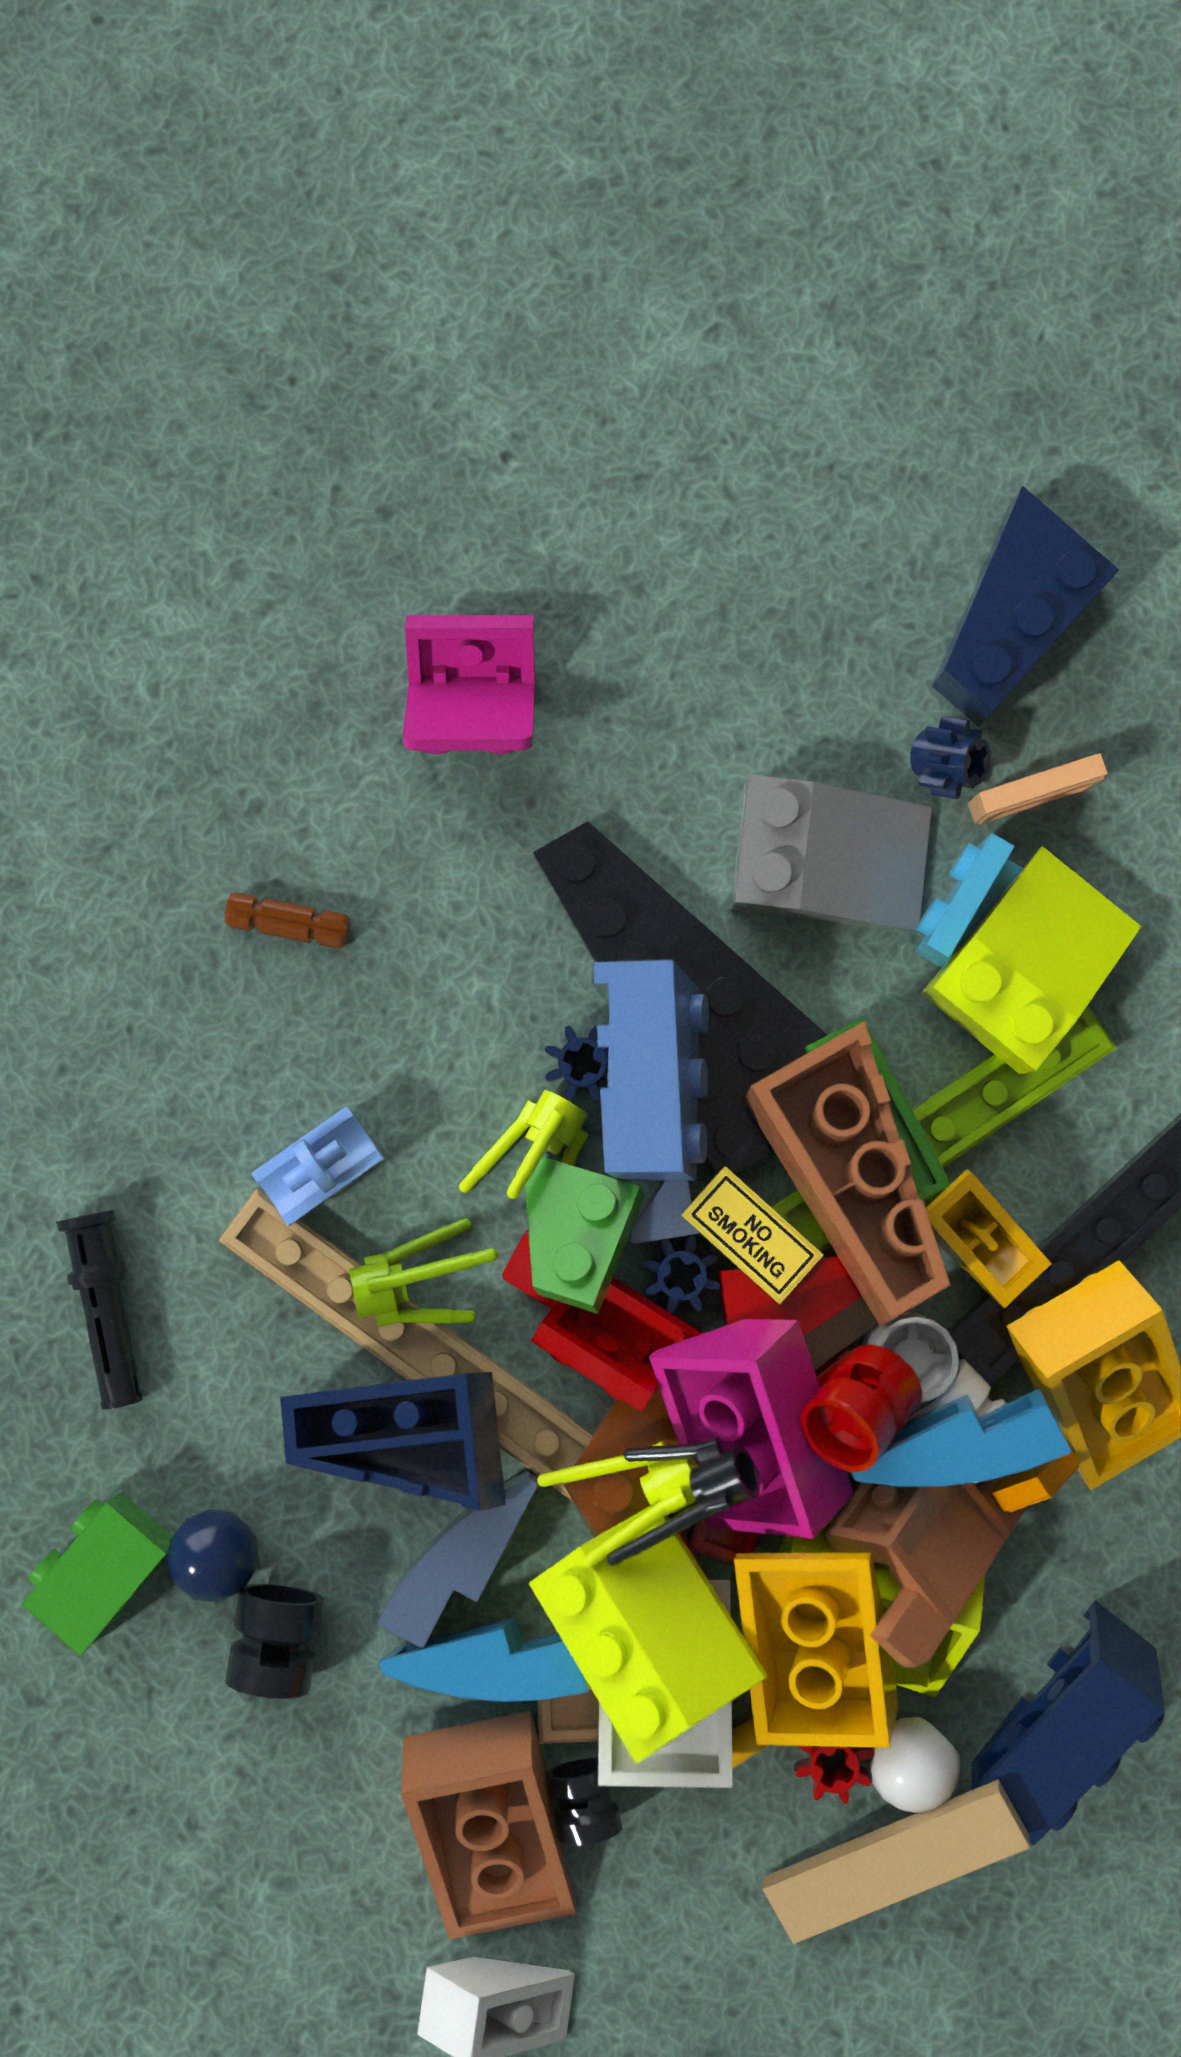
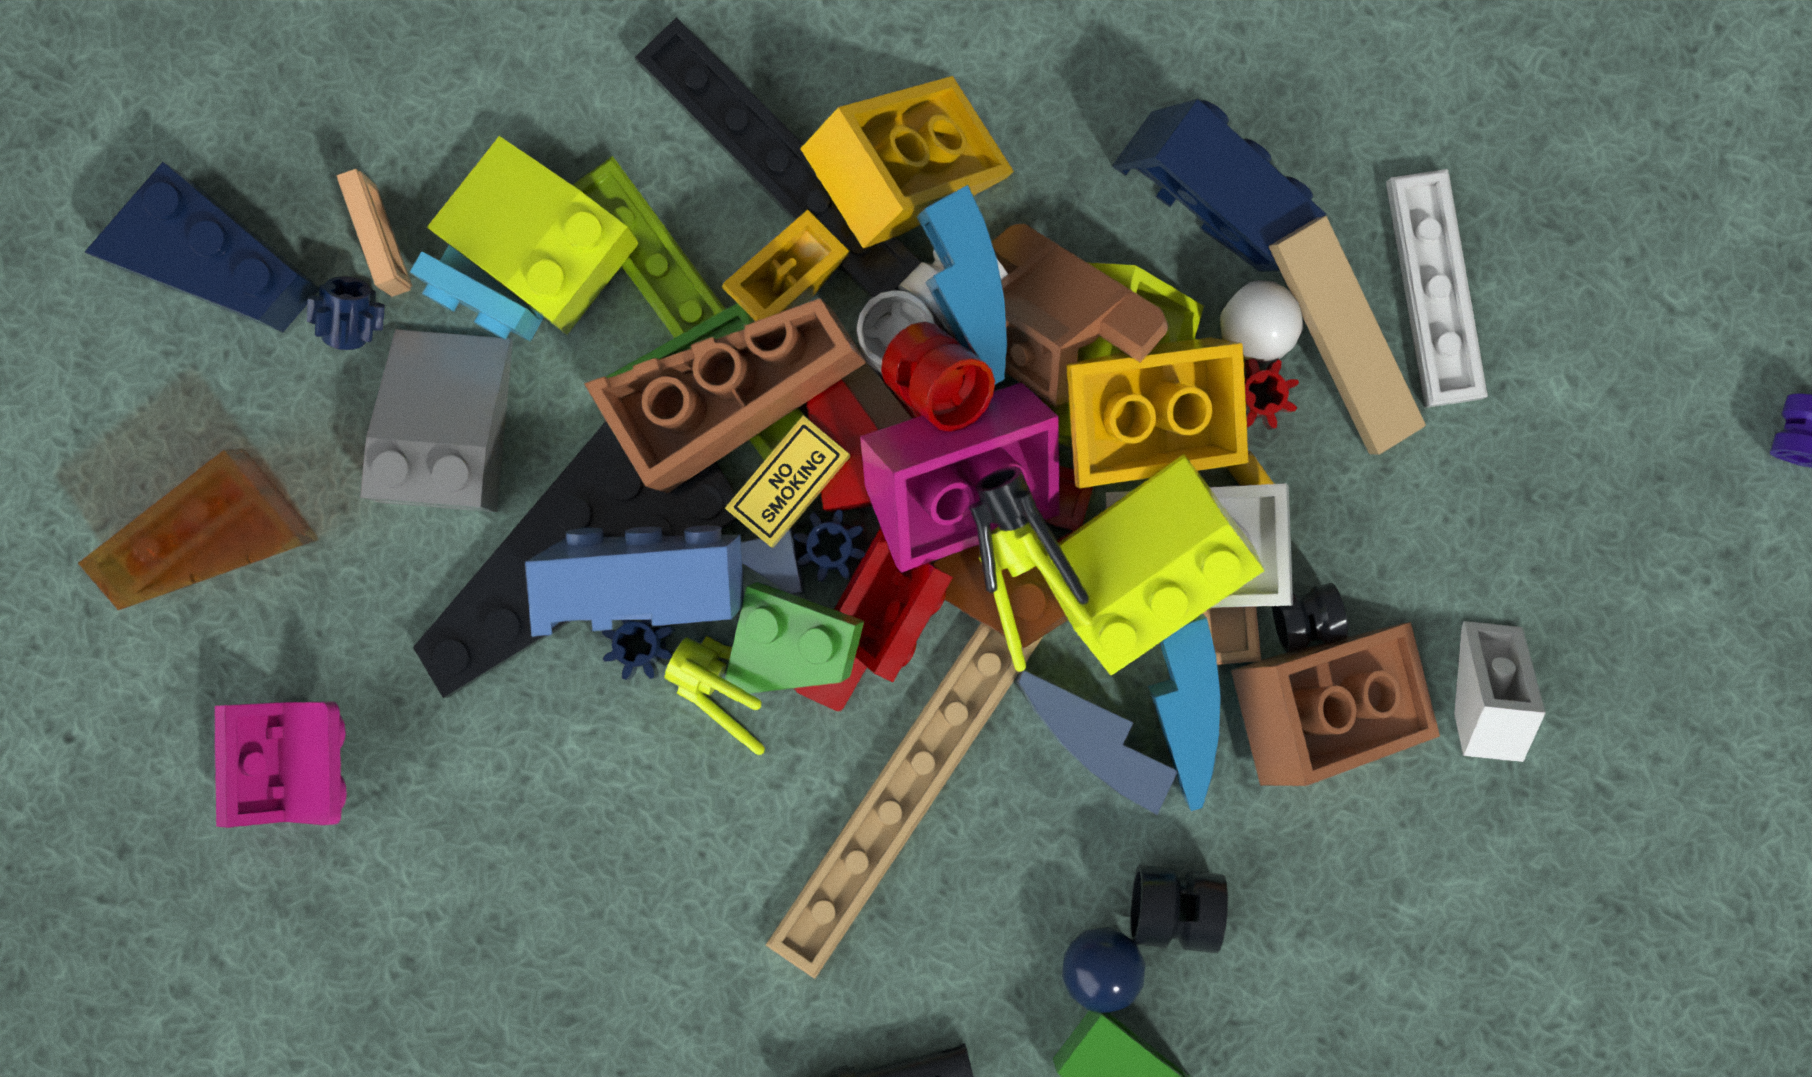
camera: 90 degrees left, 0 degrees up
(287, 920) = (513, 927): dark orange axle -> none
(318, 1165) = (740, 888): light blue hips -> none
(383, 1285) = (843, 822): lime plant -> none
(407, 1435) = (980, 796): dark blue wedge -> none
(718, 602) = (199, 530): none -> clear orange wedge
(948, 1963) = (1436, 288): none -> white tile
(1035, 1484) = (1002, 218): light orange tile -> none

